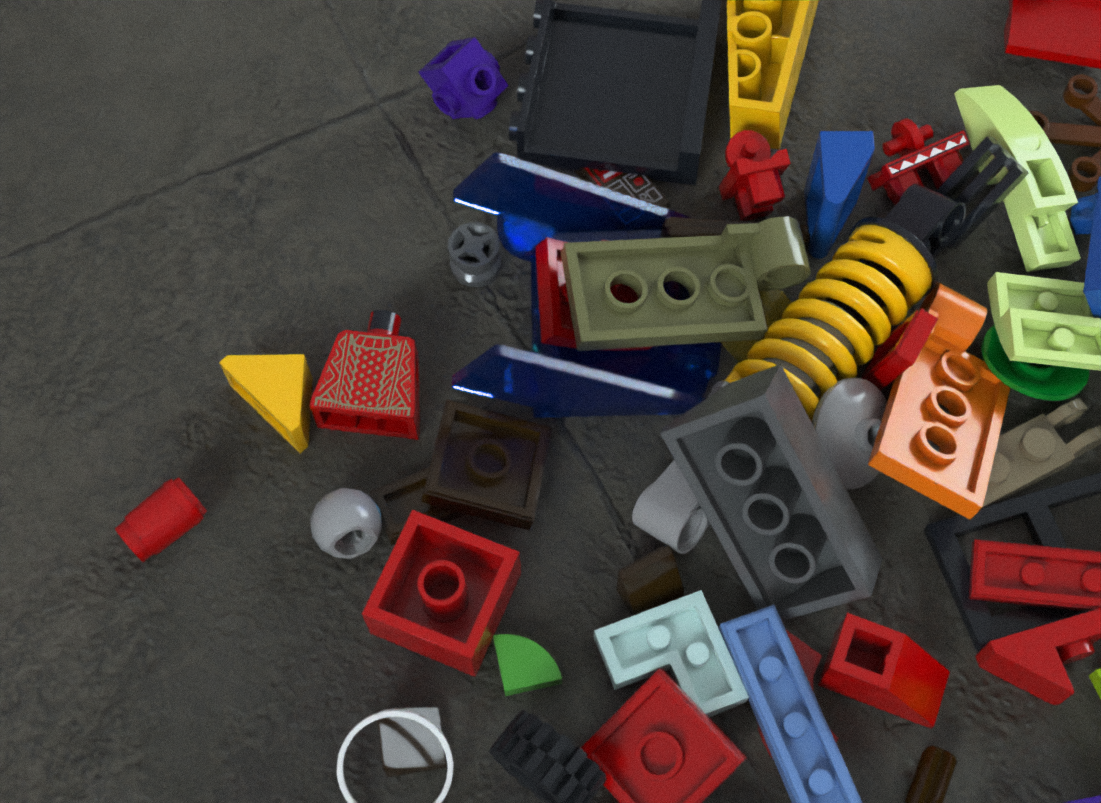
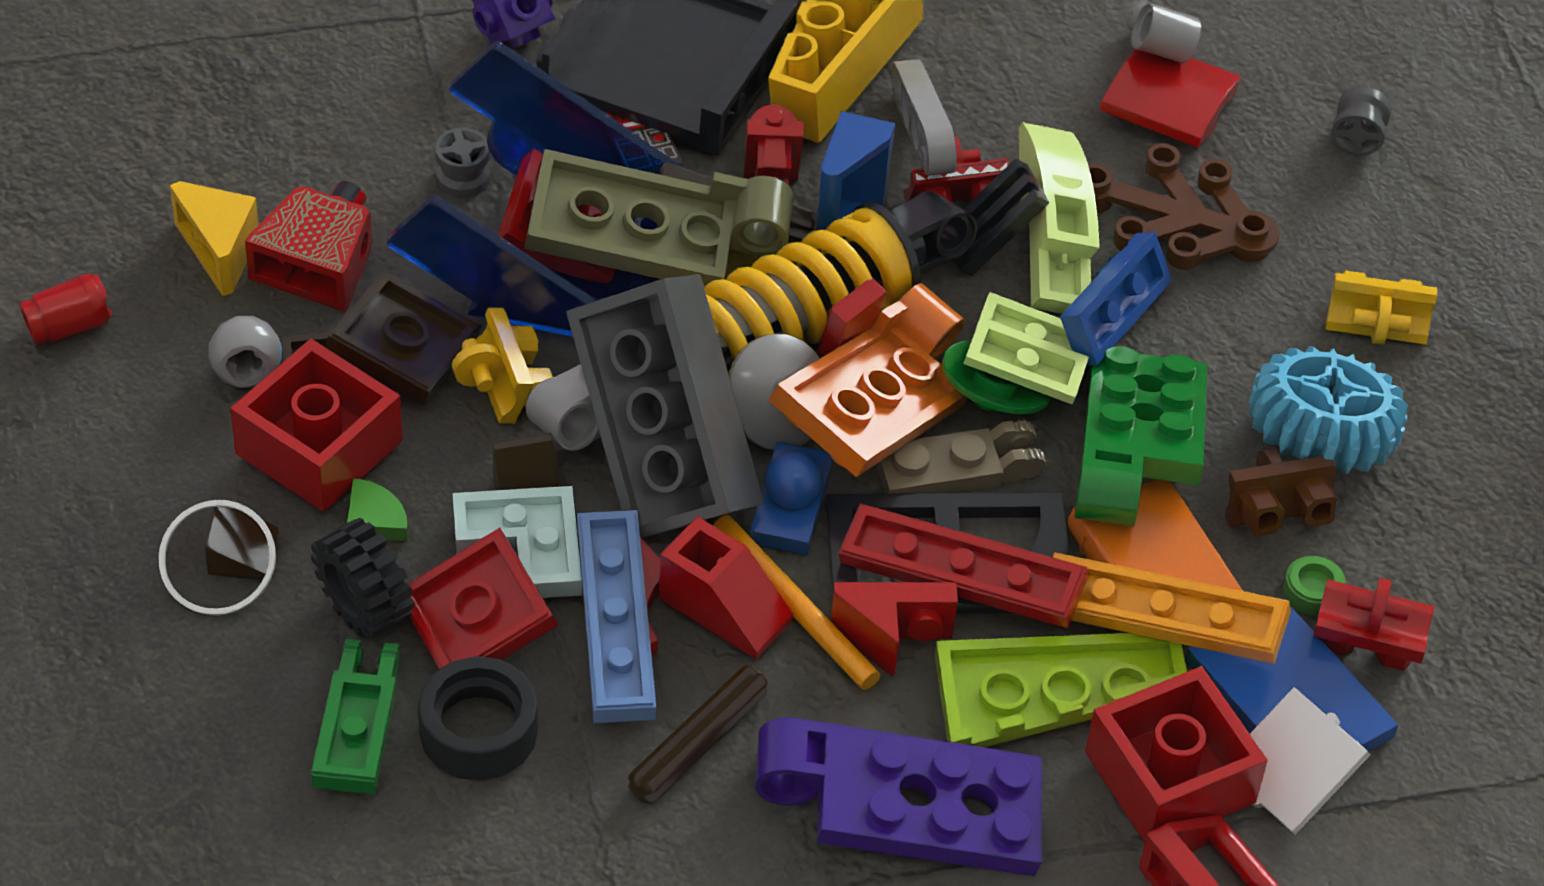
camera: 10 degrees right, 15 degrees down
(586, 473) = (499, 364): none -> yellow hips
(875, 107) = (924, 117): none -> light grey beam
(901, 534) = (791, 498): none -> blue tile
(956, 661) = (806, 612): none -> light orange bar

